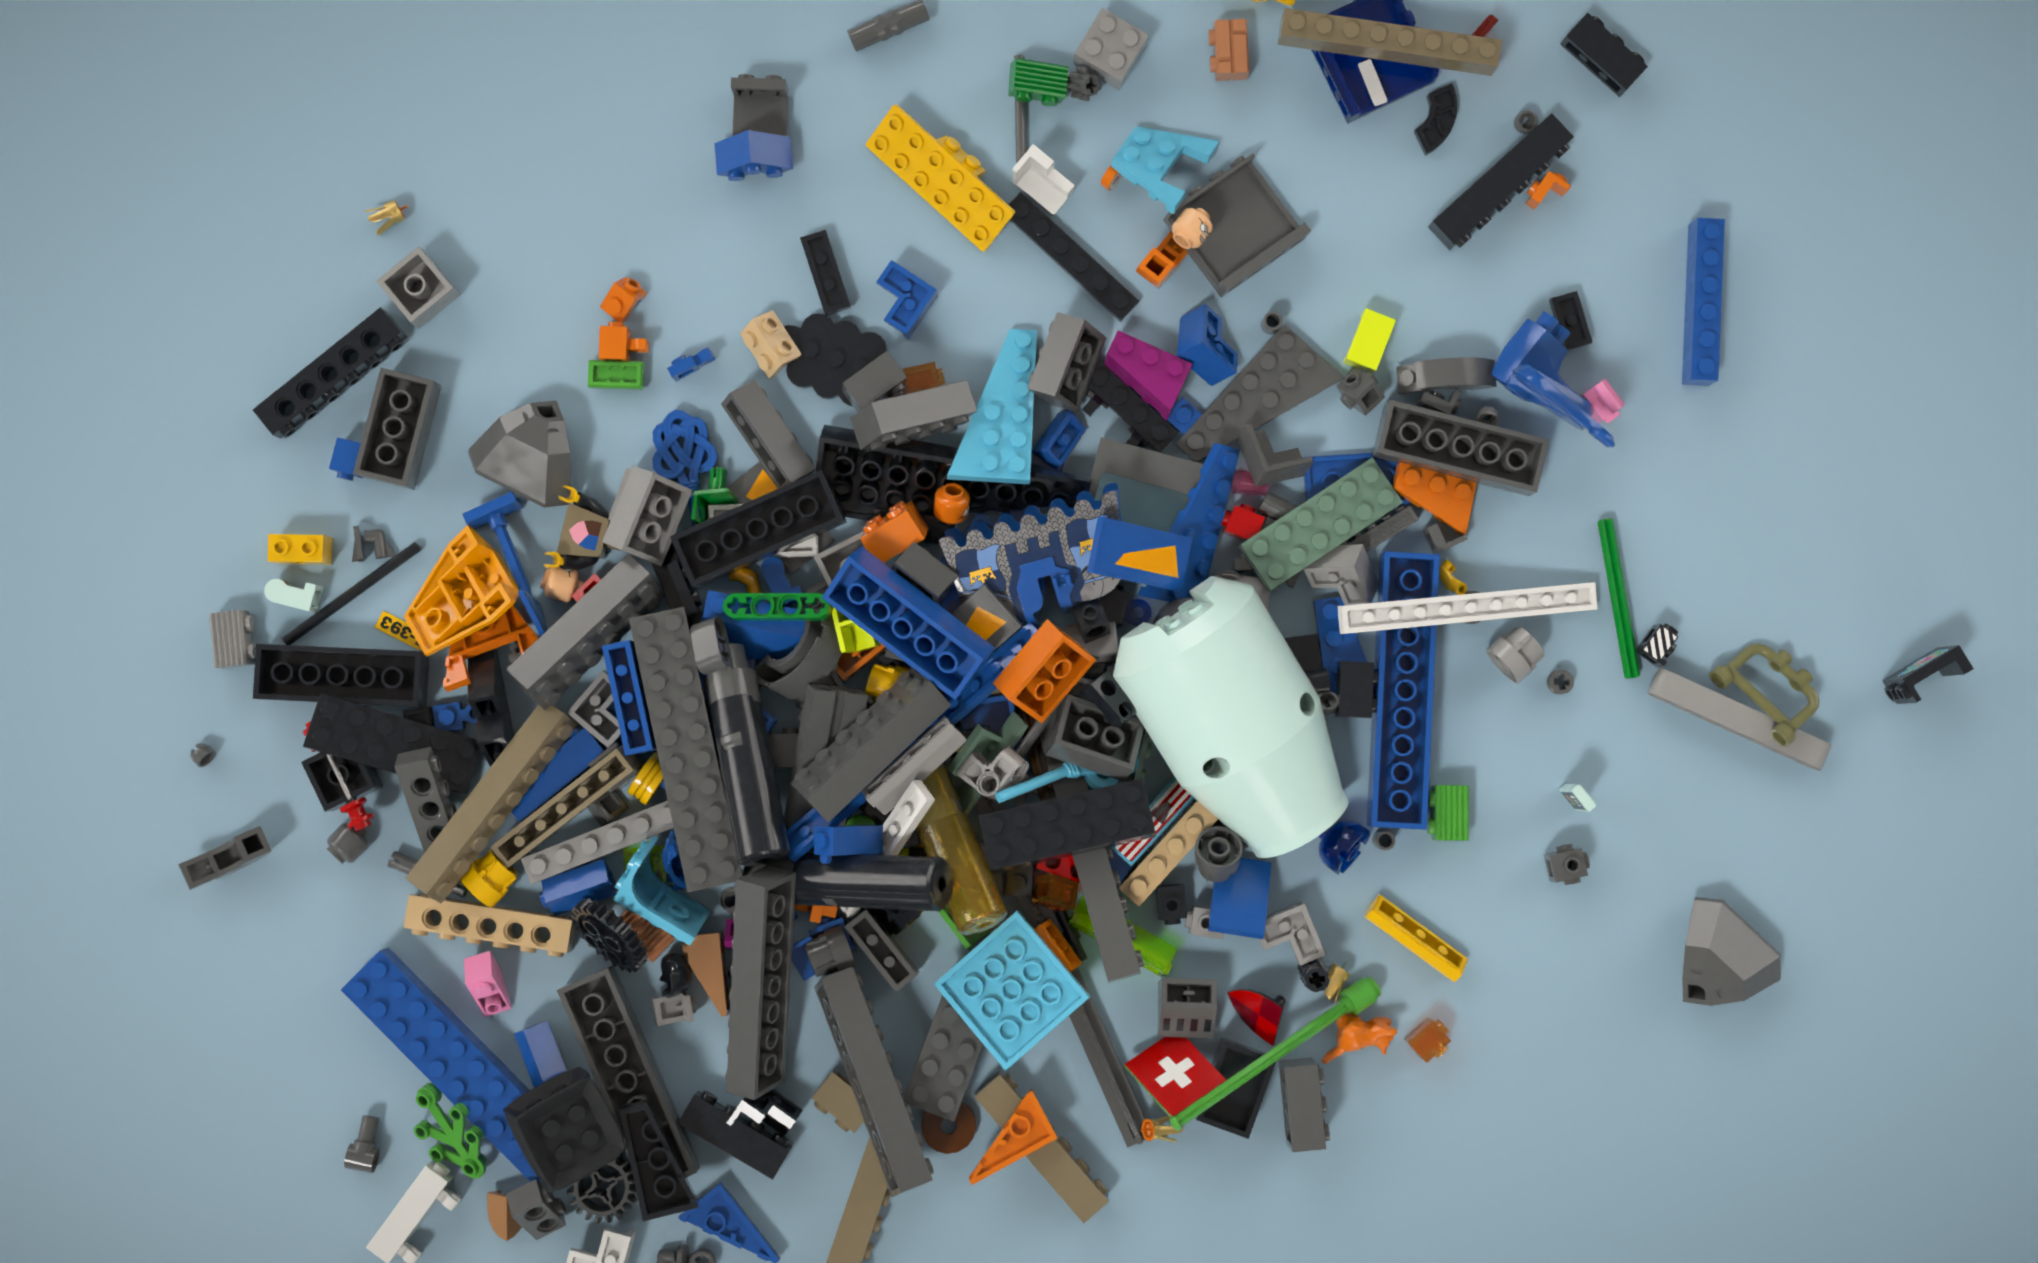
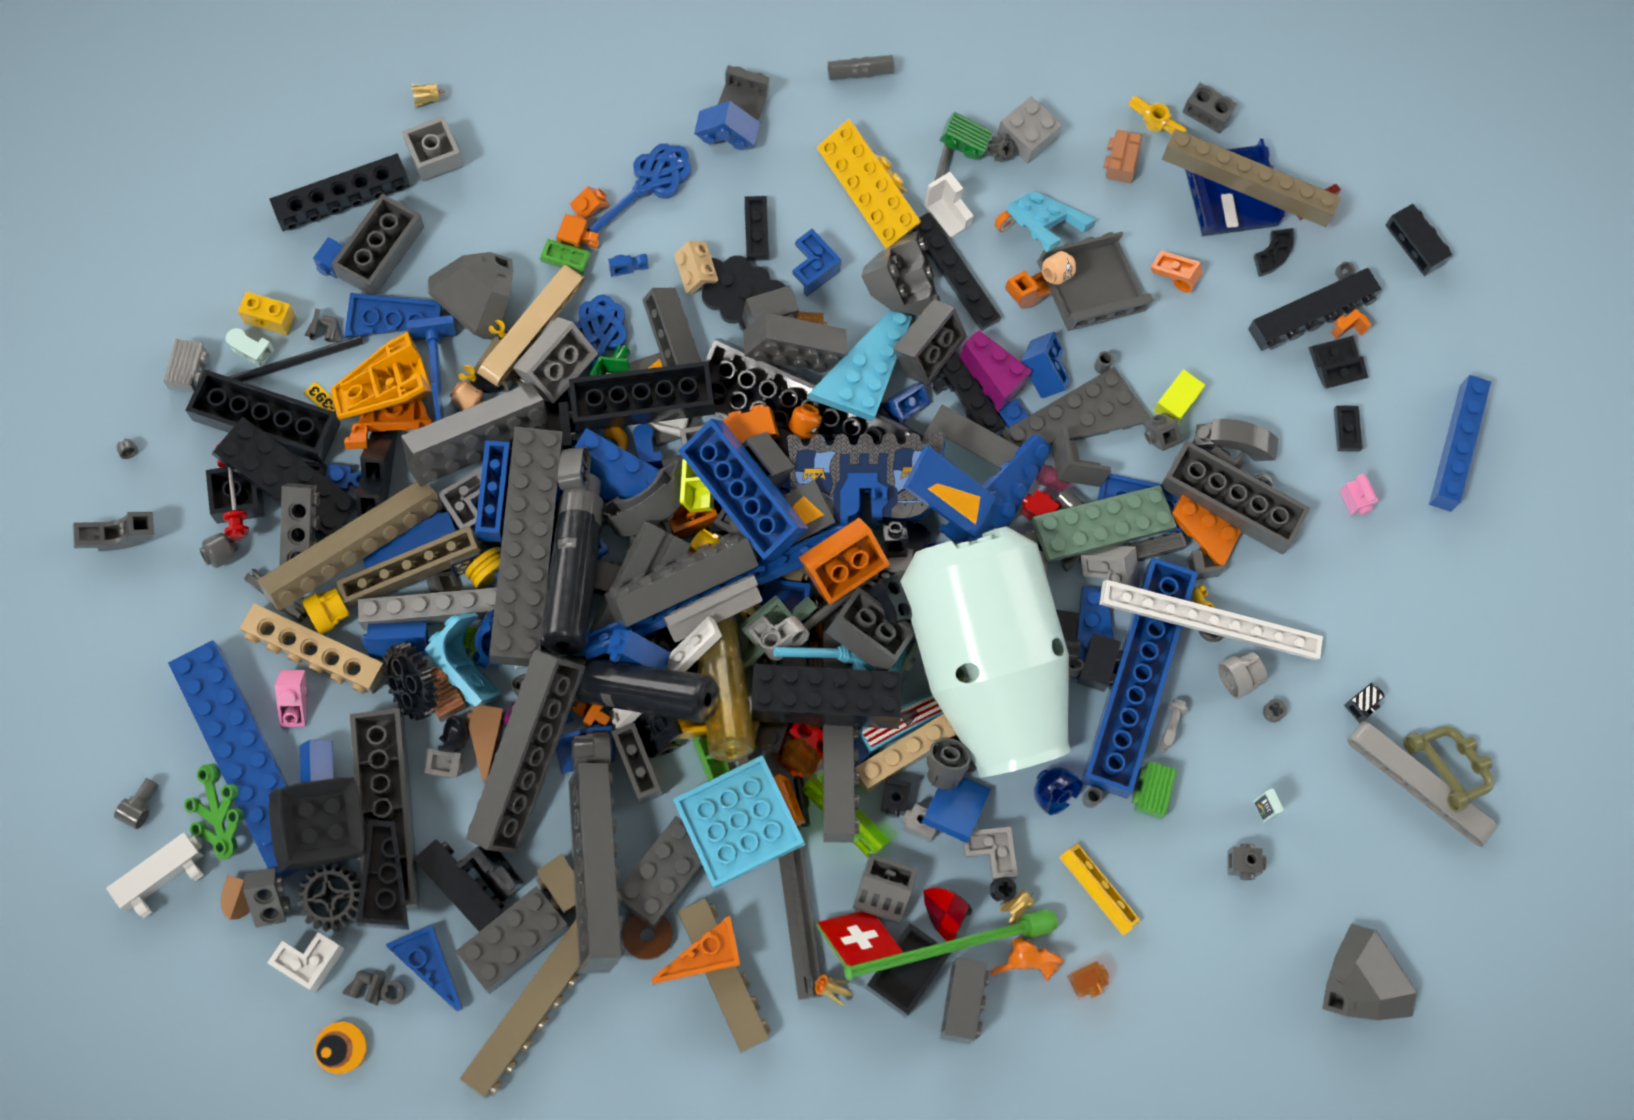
camera: 10 degrees right, 15 degrees down
(434, 508) = (385, 314): none -> blue wing
(606, 478) = (530, 325): none -> tan beam
(678, 262) = (661, 181): none -> blue piece
(776, 611) = (638, 453): green beam -> none
(809, 1175) = (512, 940): none -> dark grey brick
(1013, 286) = (902, 276): none -> dark grey brick
(1333, 180) = (1181, 270): none -> orange plate
(1450, 748) = (1177, 709): none -> light grey hinge
(1531, 372) = (1307, 455): blue hips -> none
(1542, 240) = (1338, 362): none -> black slope
(1618, 598) = (1339, 662): green axle -> none
(1947, 660) = (1610, 782): black panel -> none

